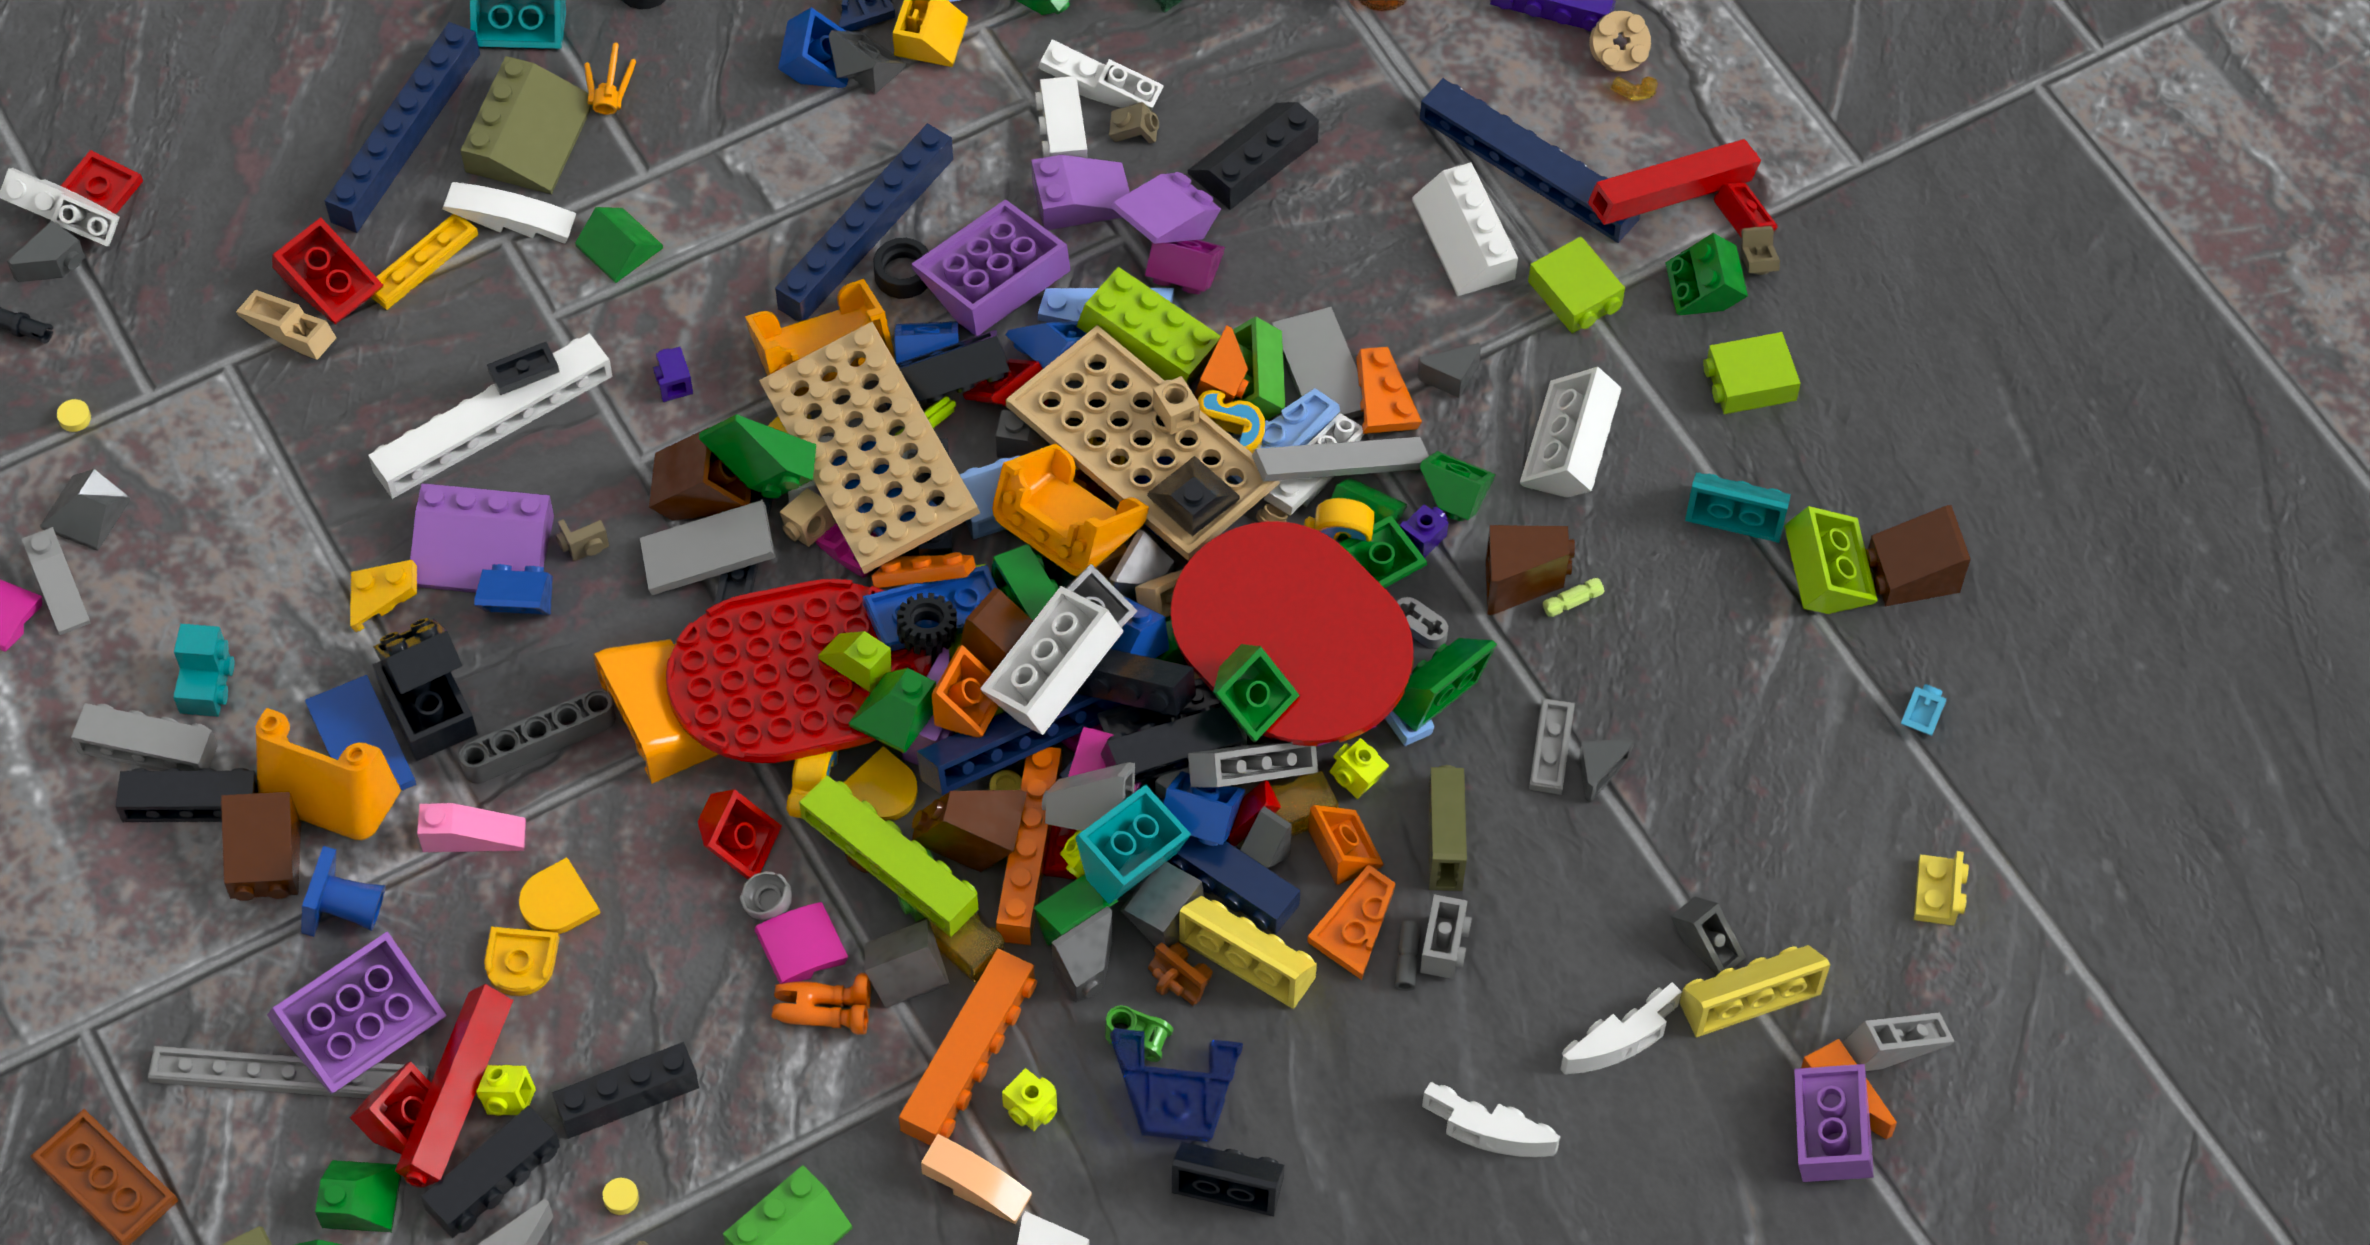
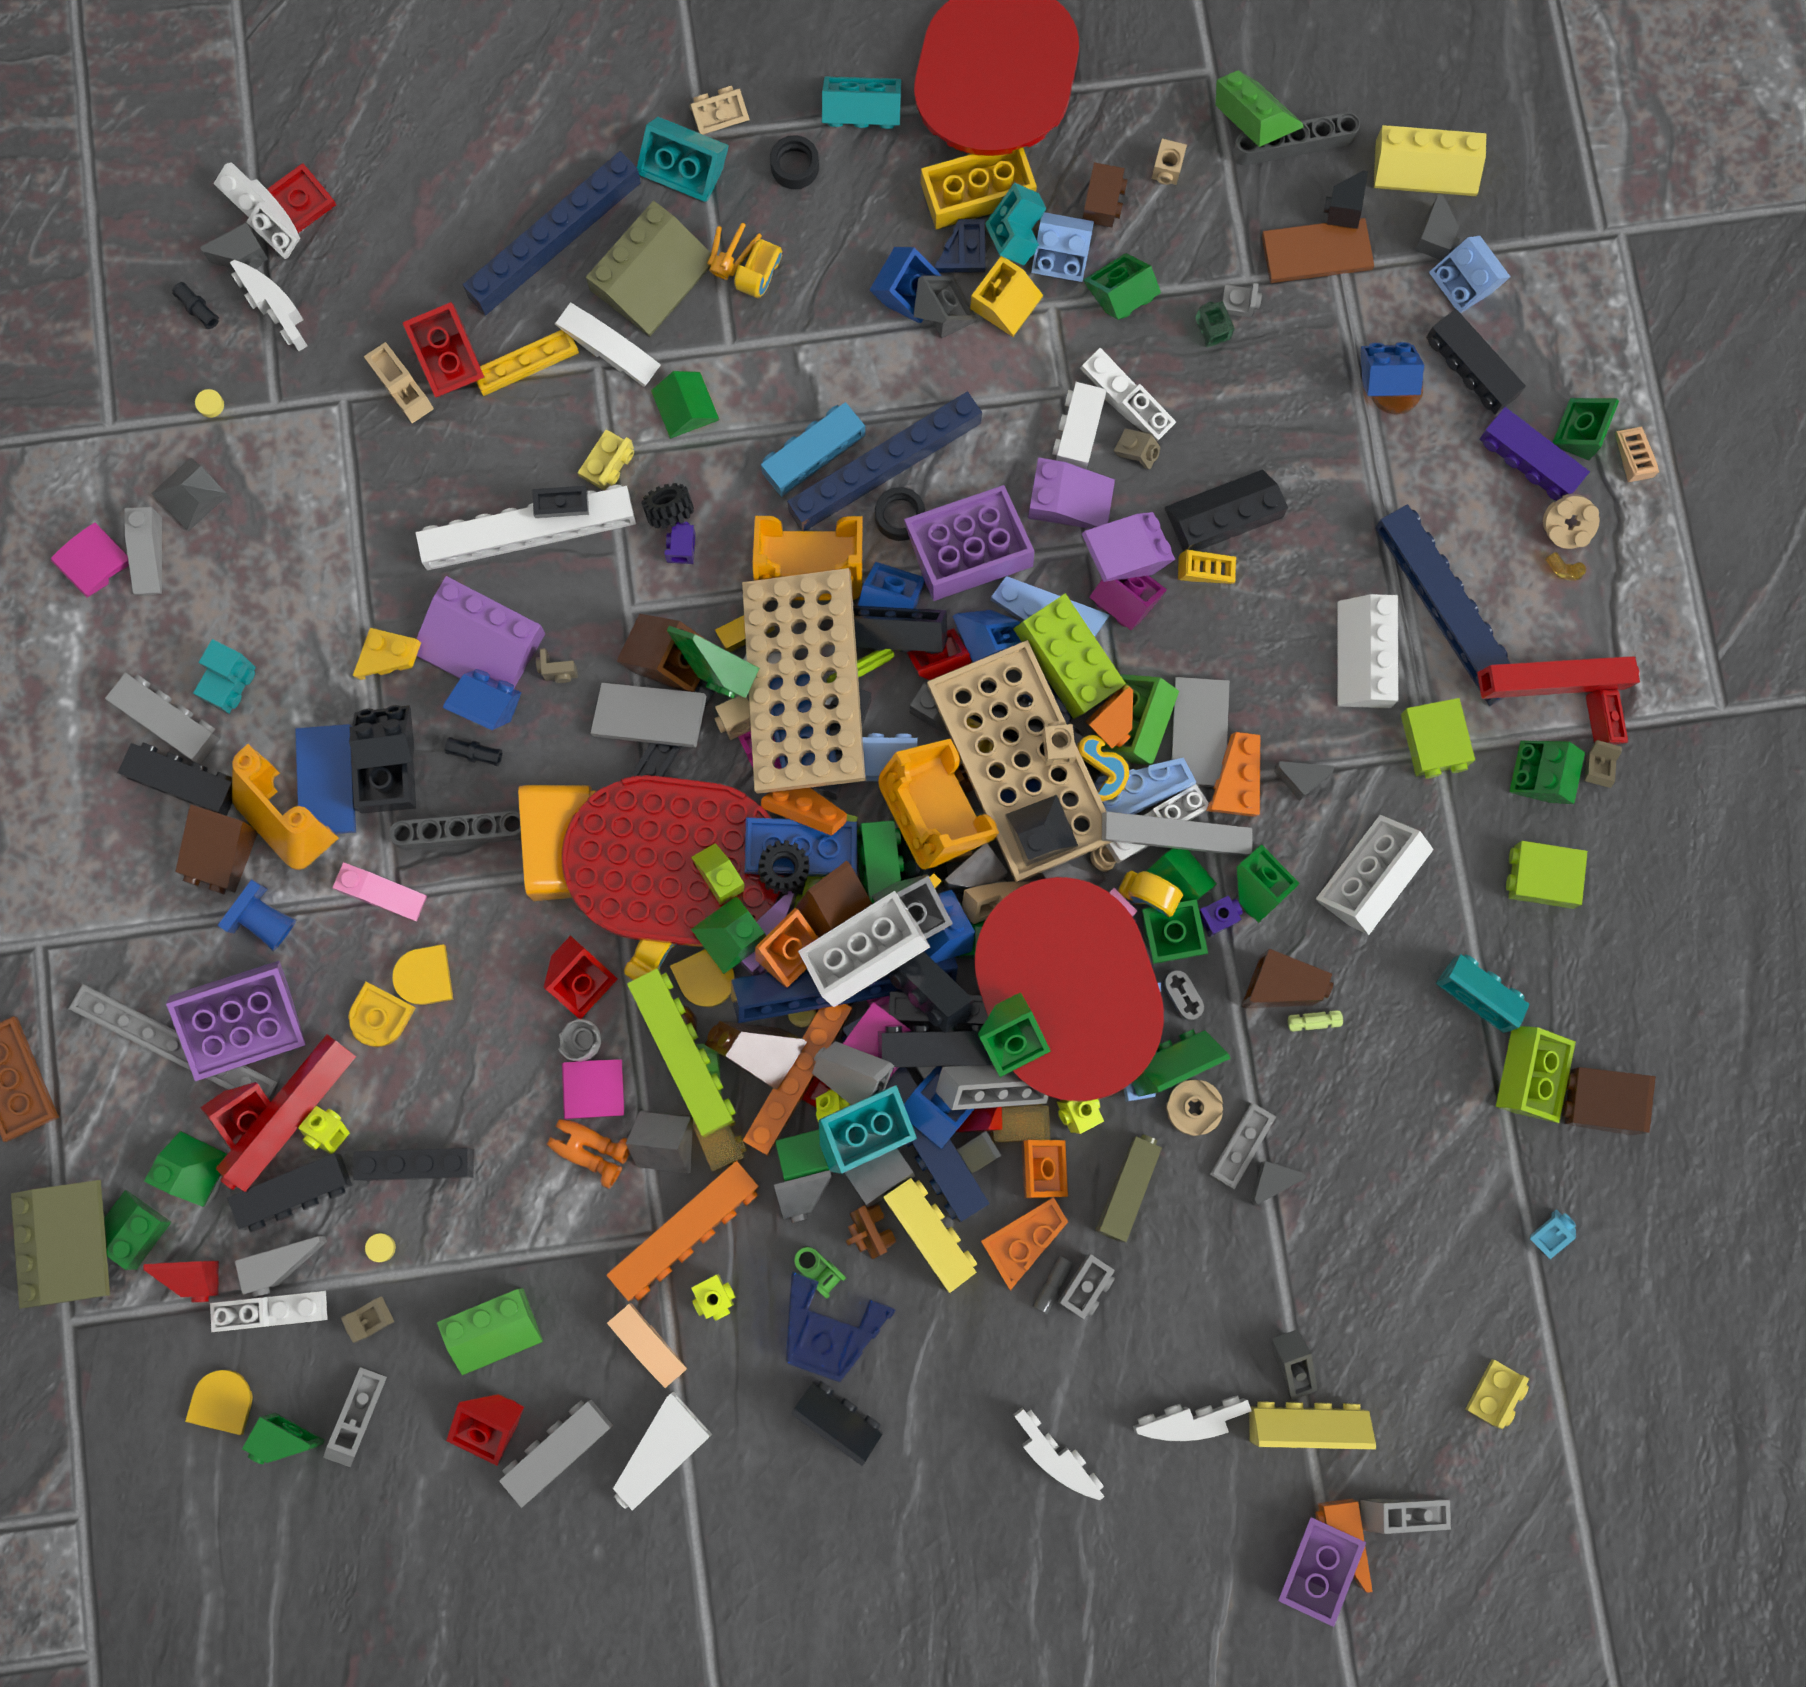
camera: 20 degrees right, 20 degrees up
(106, 287) = (270, 300): none -> white slope
(521, 653) = (473, 751): none -> black pin
(555, 320) = (606, 460): none -> light yellow bracket
(643, 338) = (667, 505): none -> black tyre
(646, 89) = (758, 271): none -> yellow animal
(781, 235) = (812, 449): none -> dark azure brick
(1241, 220) = (1191, 560): none -> yellow slope
(1482, 742) = (1194, 1091): none -> tan plate

